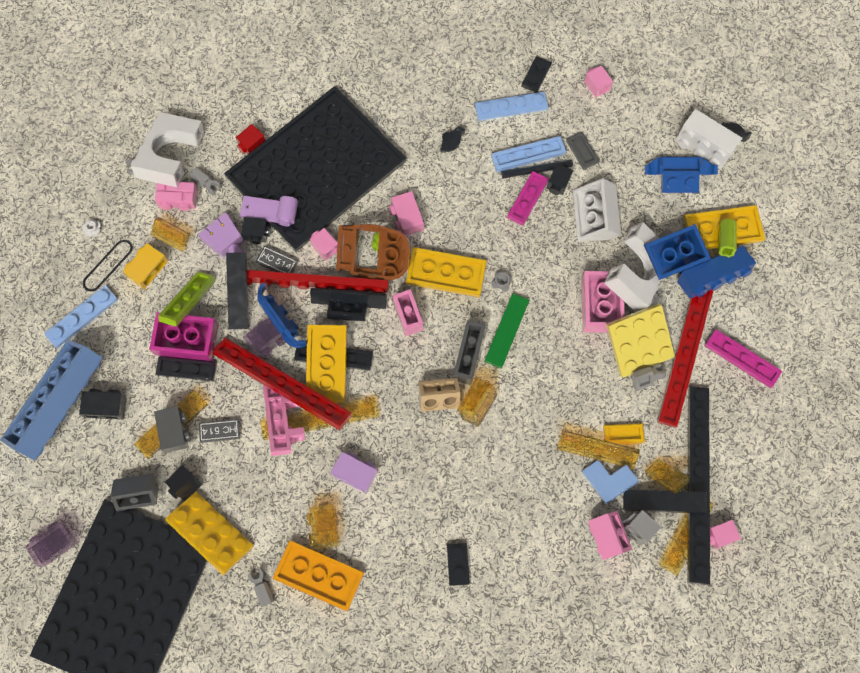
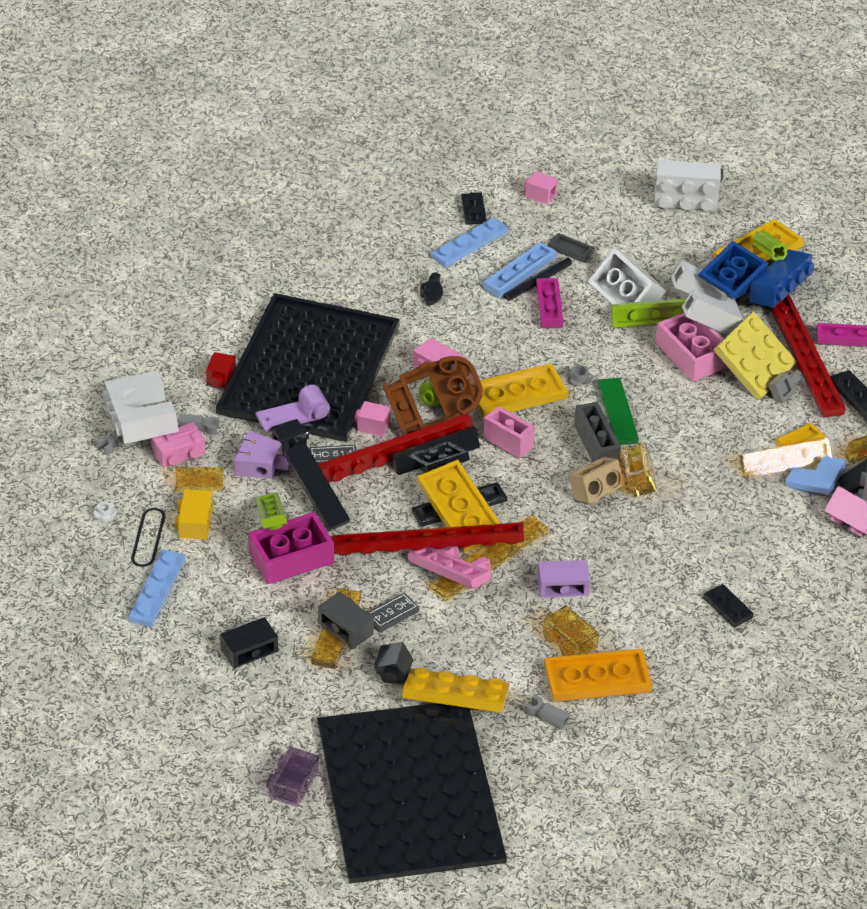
camera: 30 degrees left, 30 degrees down
(51, 399) = (192, 653): medium blue brick -> none
(134, 492) = (348, 691): dark grey brick -> none
(186, 368) = (311, 580): black tile -> none
(263, 339) = (378, 512): clear purple brick -> none
(278, 317) = (383, 488): blue plate -> none
(559, 179) = (569, 274): black brick -> none
(597, 250) = (645, 312): none -> lime plate
(680, 173) = (682, 225): blue plate -> none

